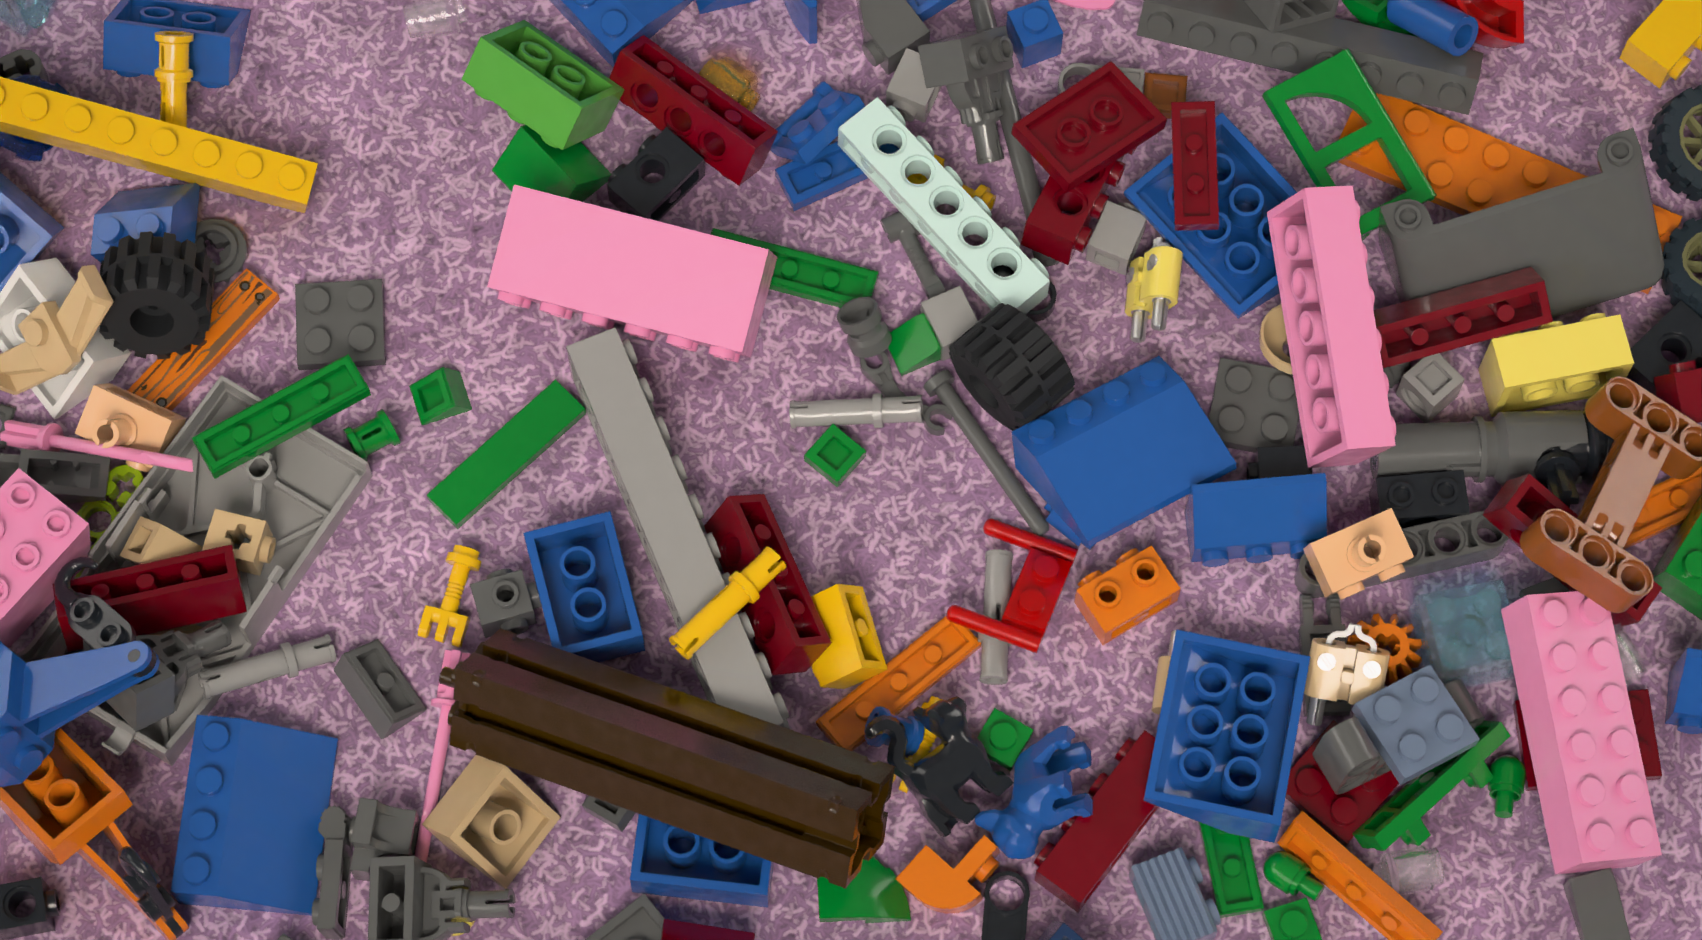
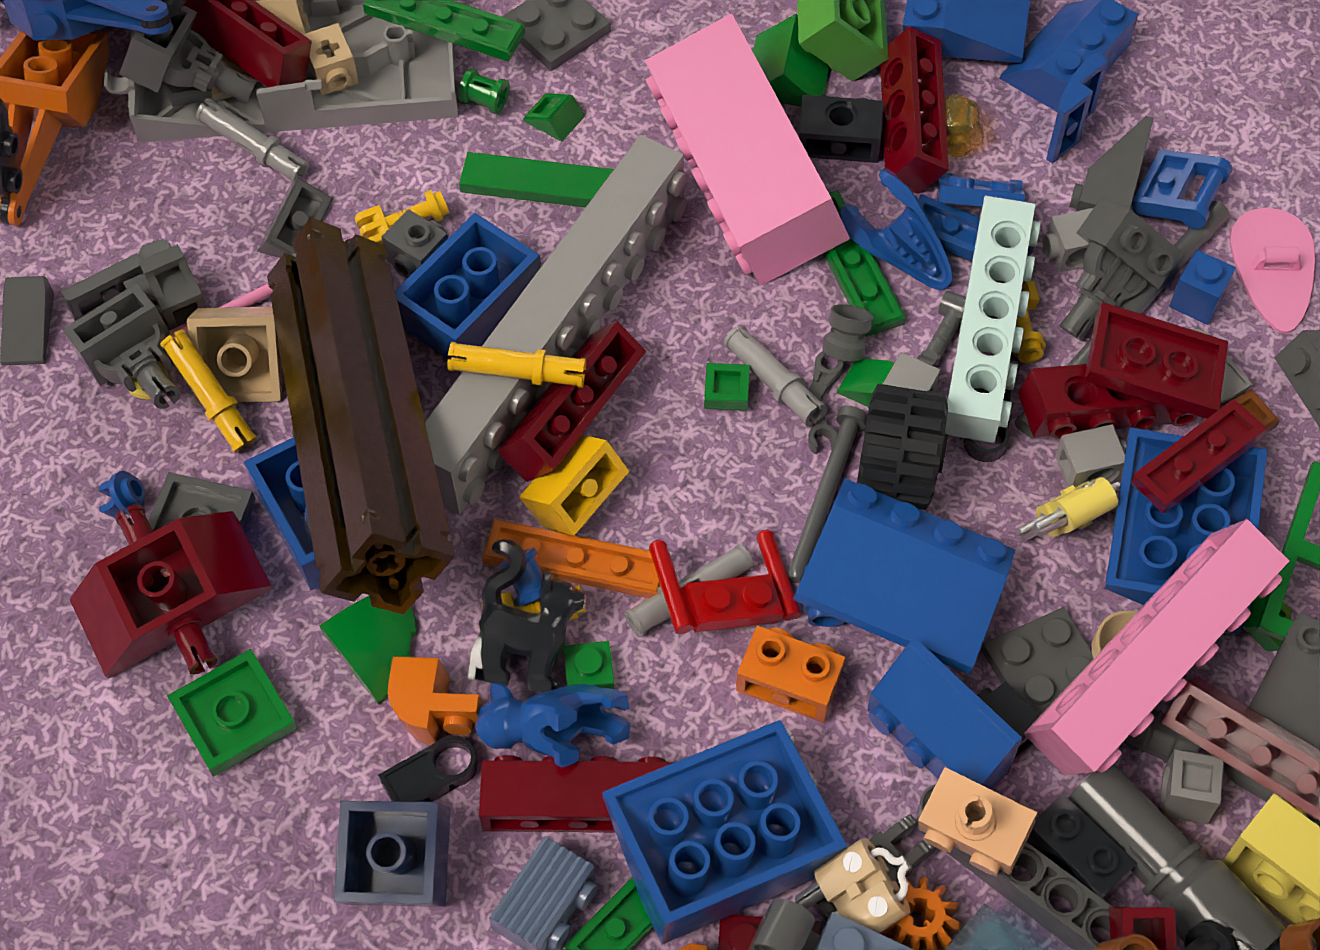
camera: 55 degrees right, 10 degrees down
(253, 816) = (127, 197): blue slope -> none
(539, 868) = (218, 405): none -> yellow pin
(810, 216) = (907, 242): none -> blue animal

